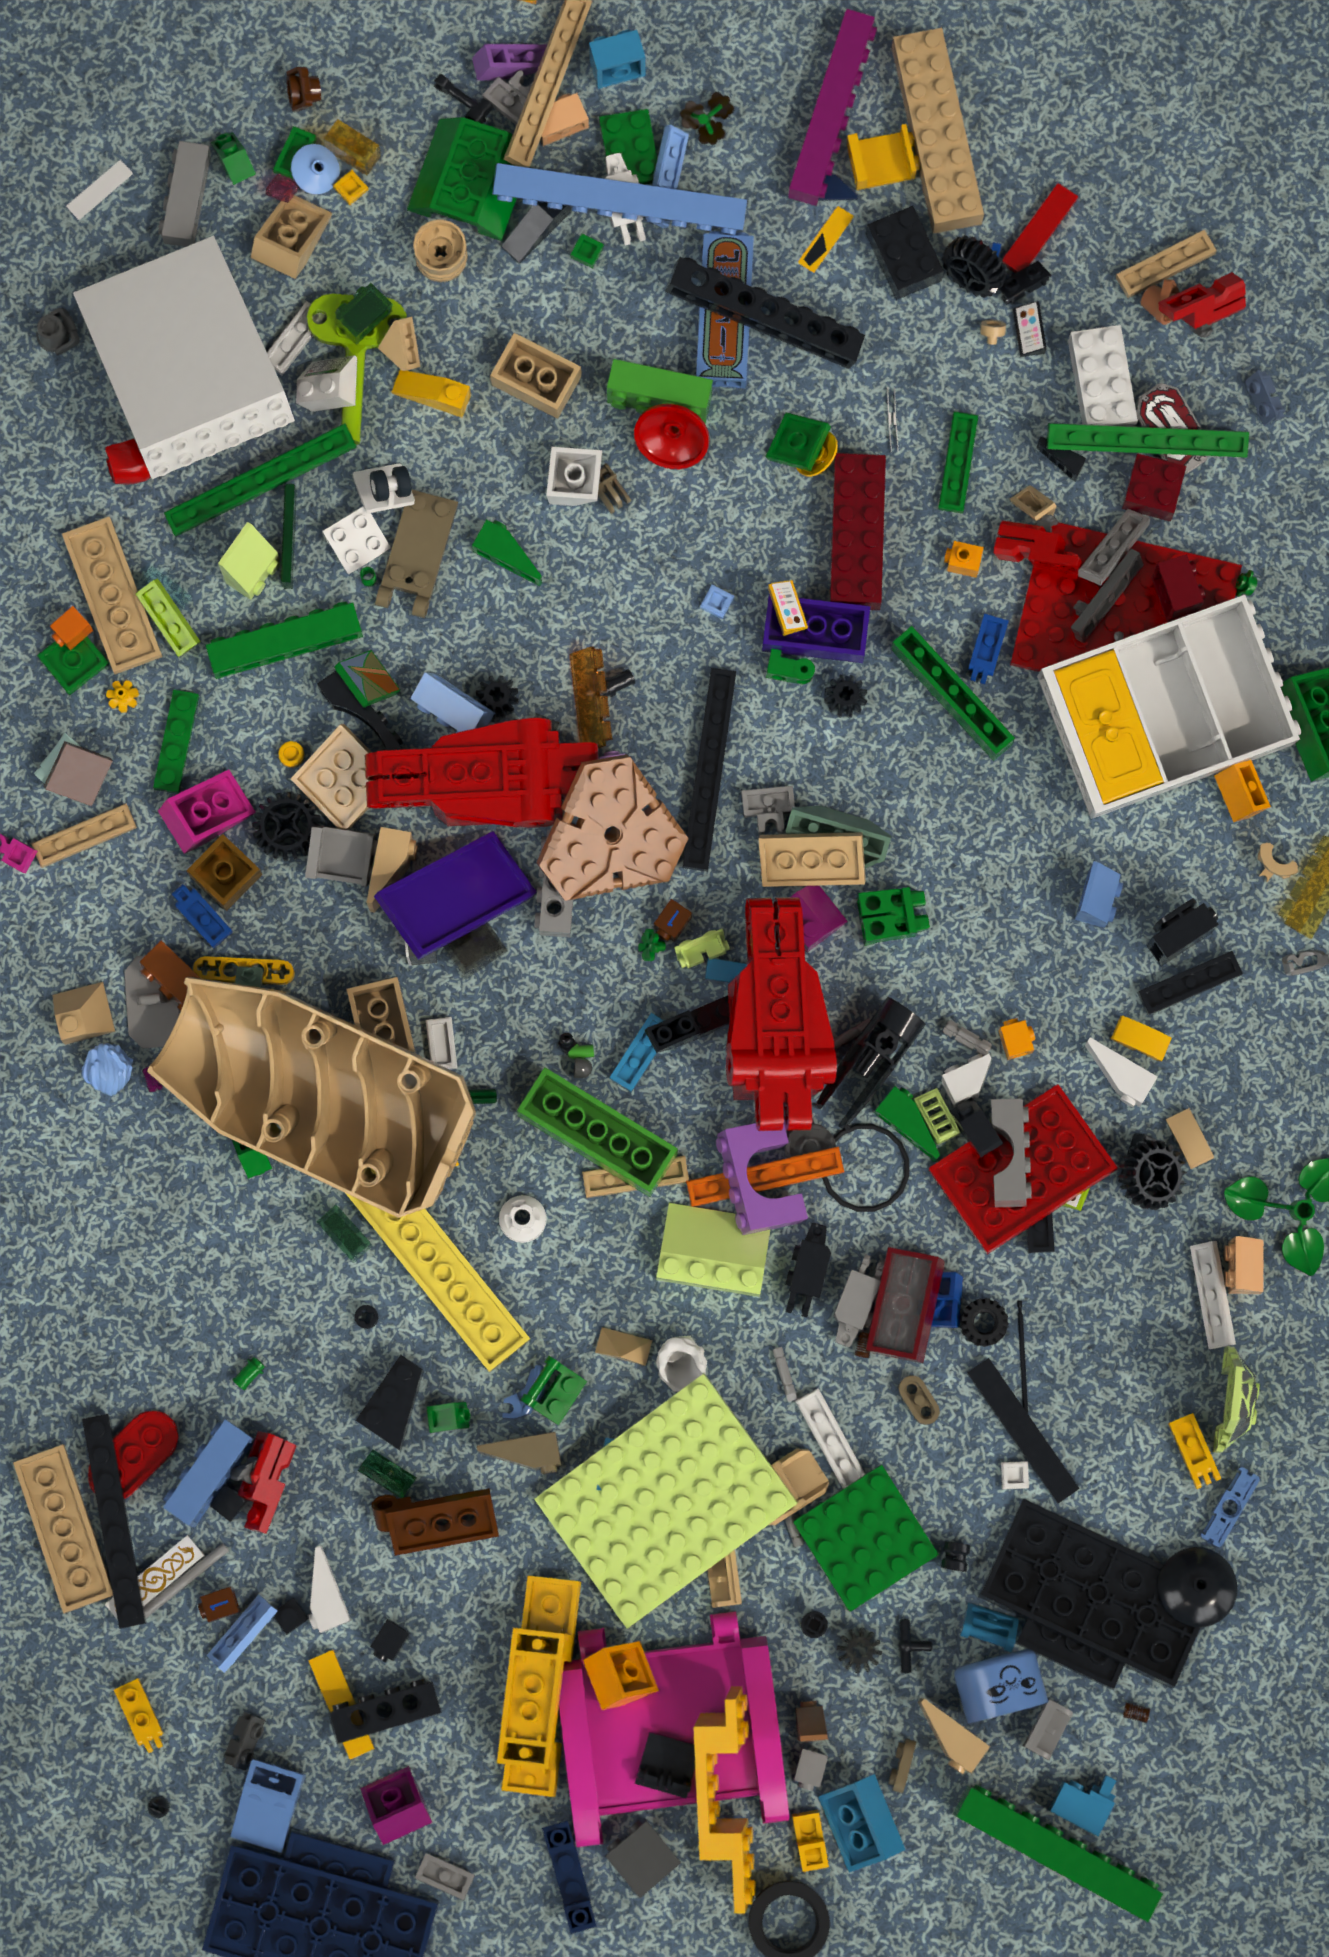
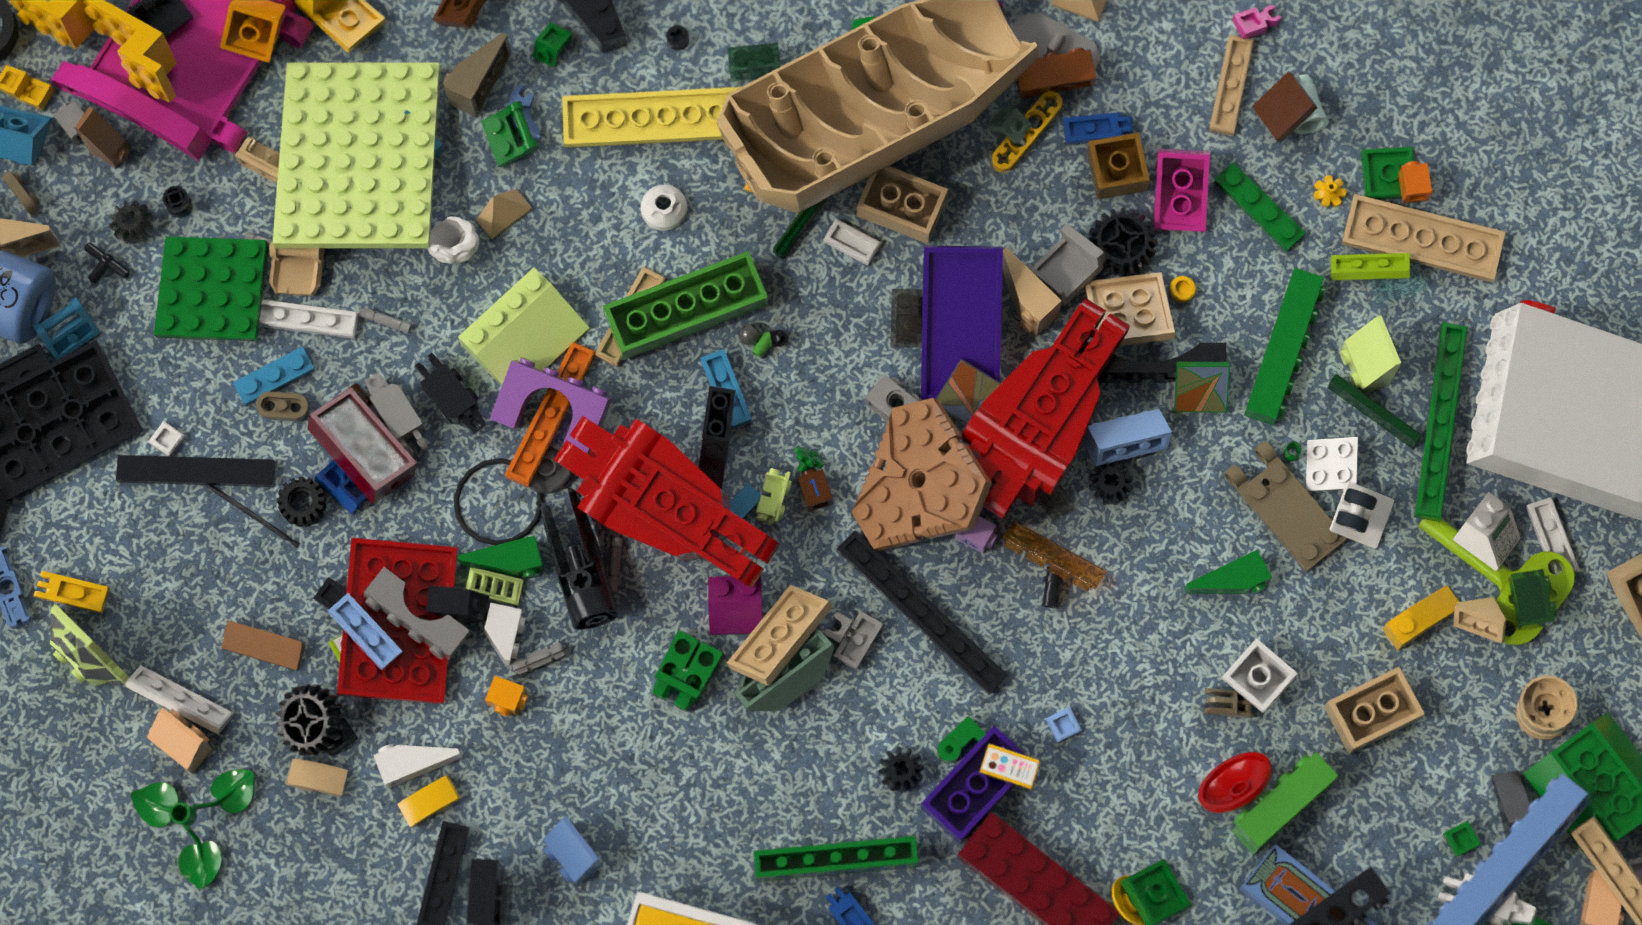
camera: 130 degrees right, 5 degrees down
(505, 855) = (966, 390): none -> tile
(898, 1428) = (274, 376): none -> dark azure plate
(955, 1550) = (141, 345): black wheel -> none
(1054, 1180) = (364, 631): none -> light blue plate
(1120, 1263) = (263, 645): none -> medium nougat slope

